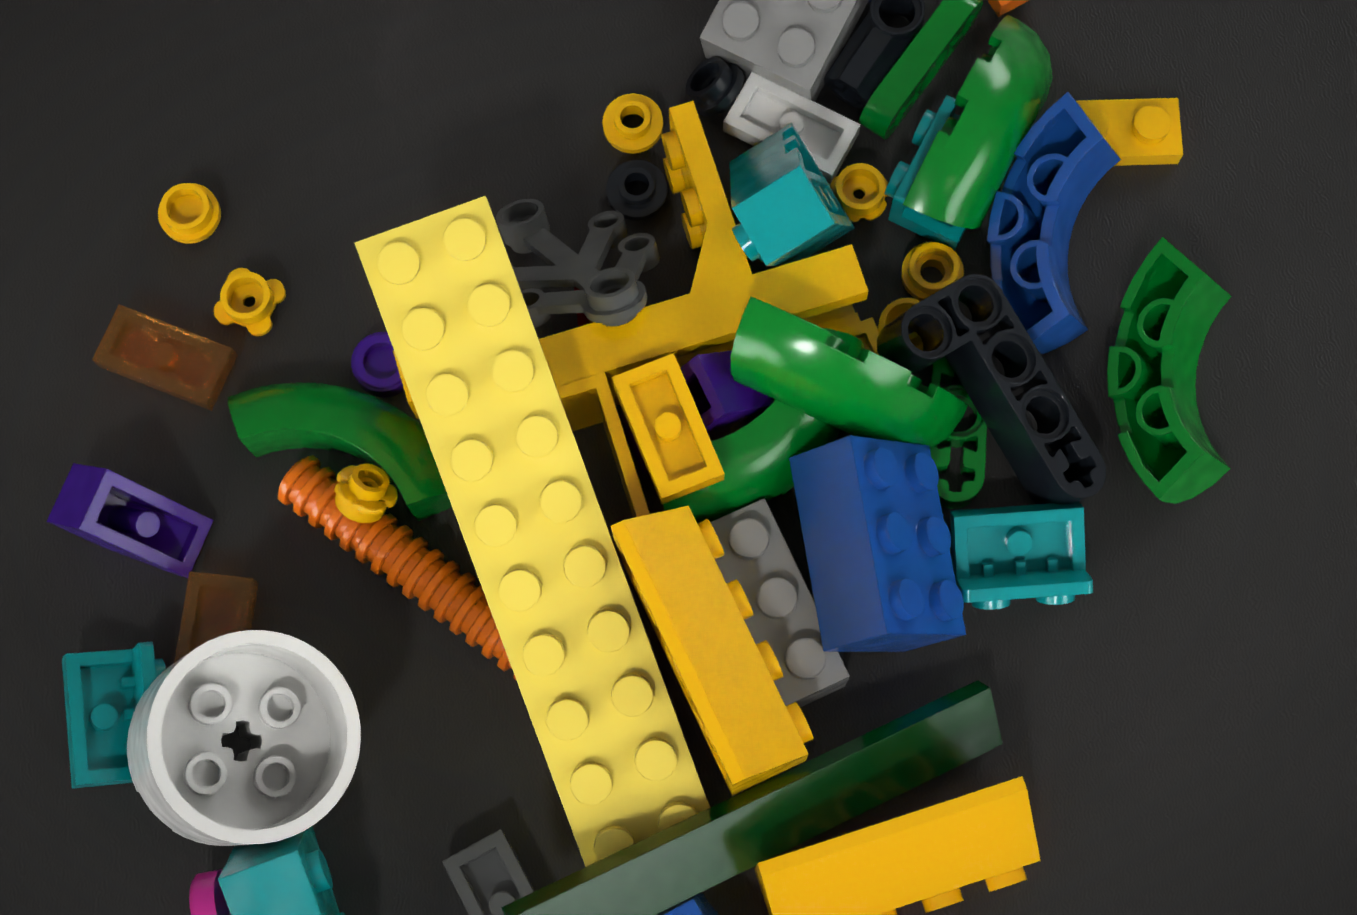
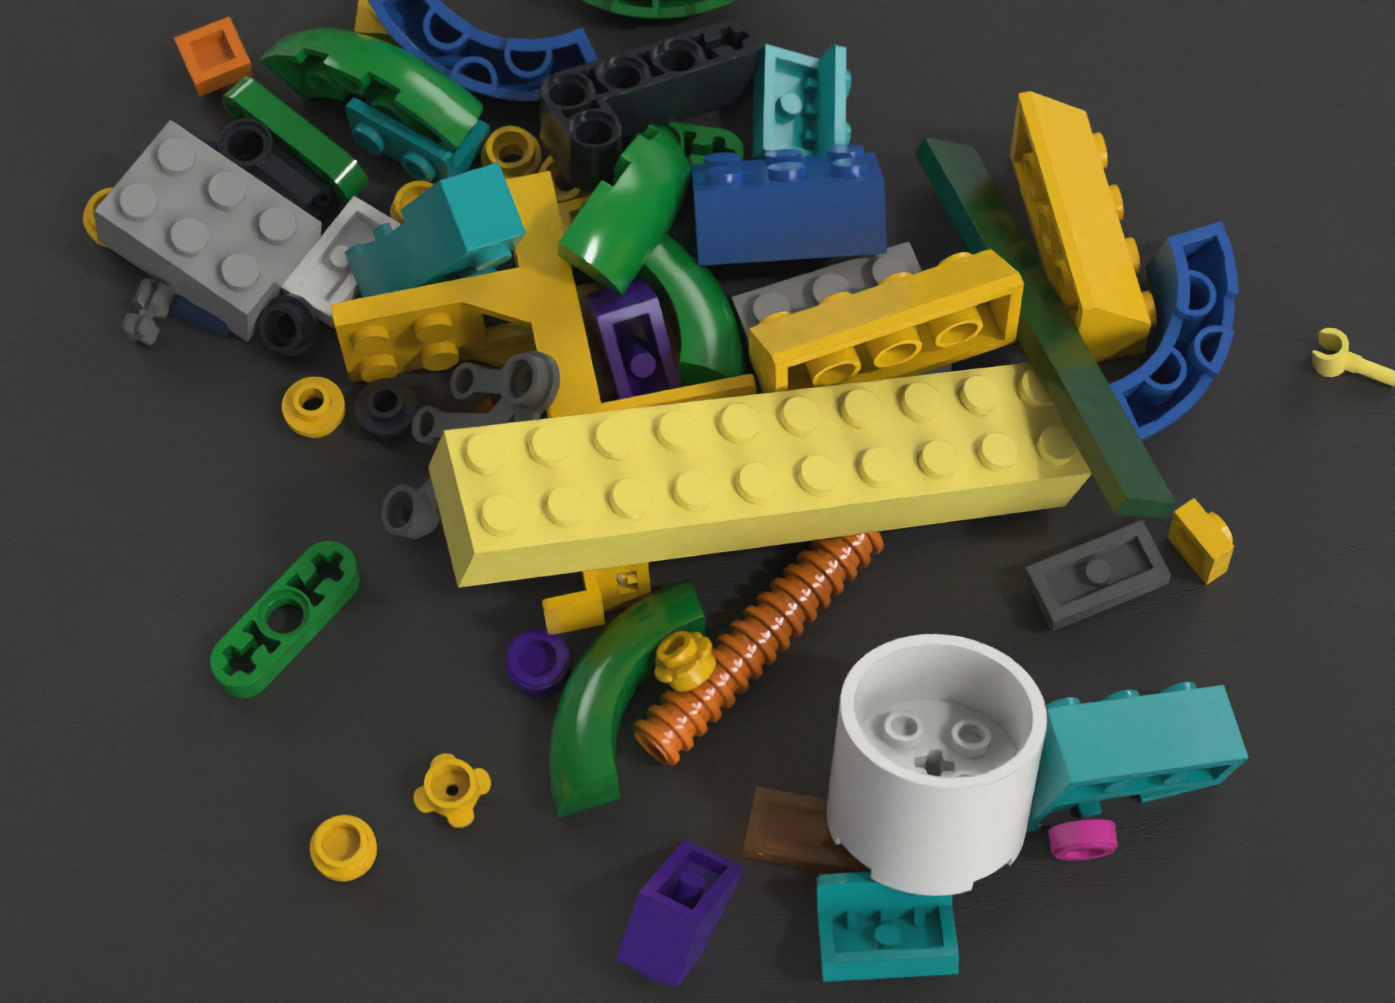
camera: 85 degrees left, 10 degrees down
(165, 357) = (505, 873): clear orange plate -> none
(369, 122) = (240, 639): none -> green beam
(668, 428) = (668, 346): yellow plate -> none

